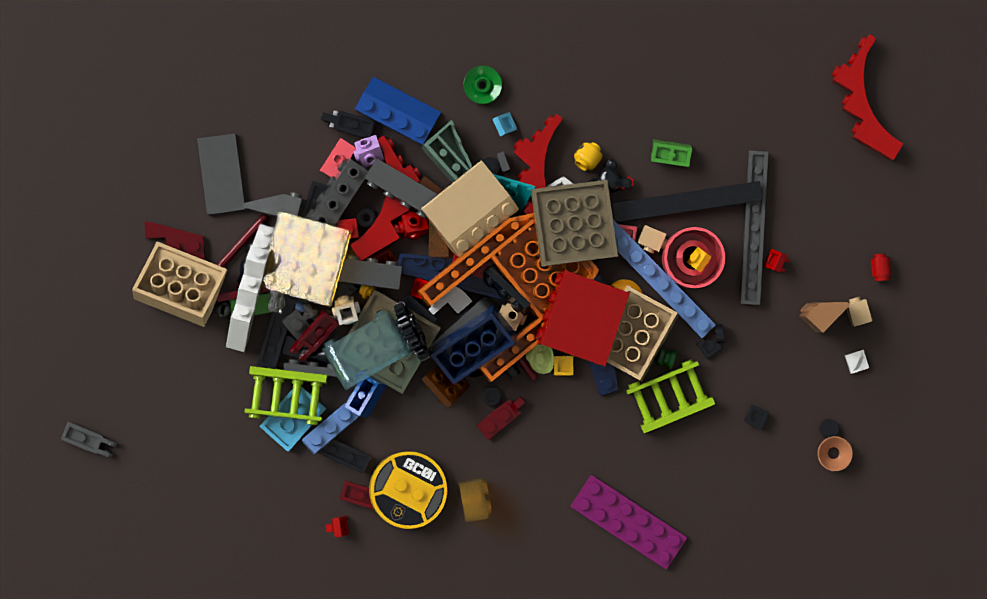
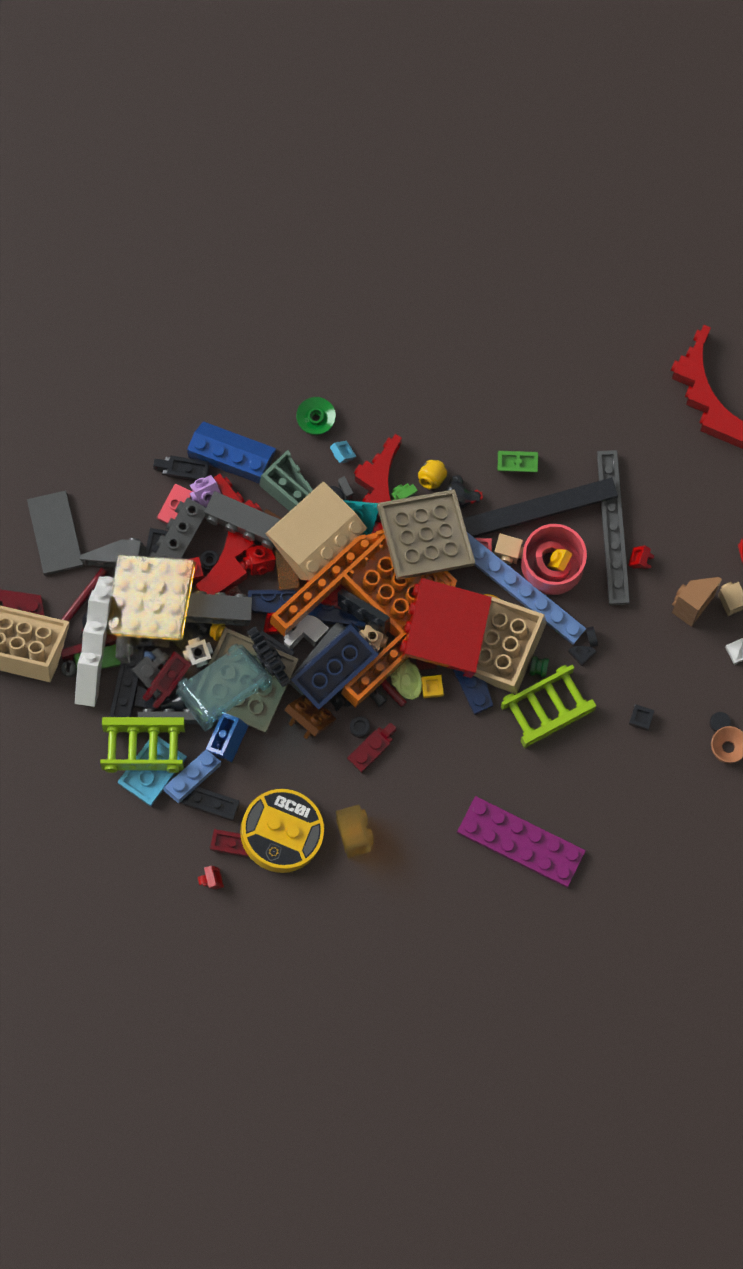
camera: 10 degrees left, 15 degrees down
(557, 175) = (403, 491): none -> bright green slope

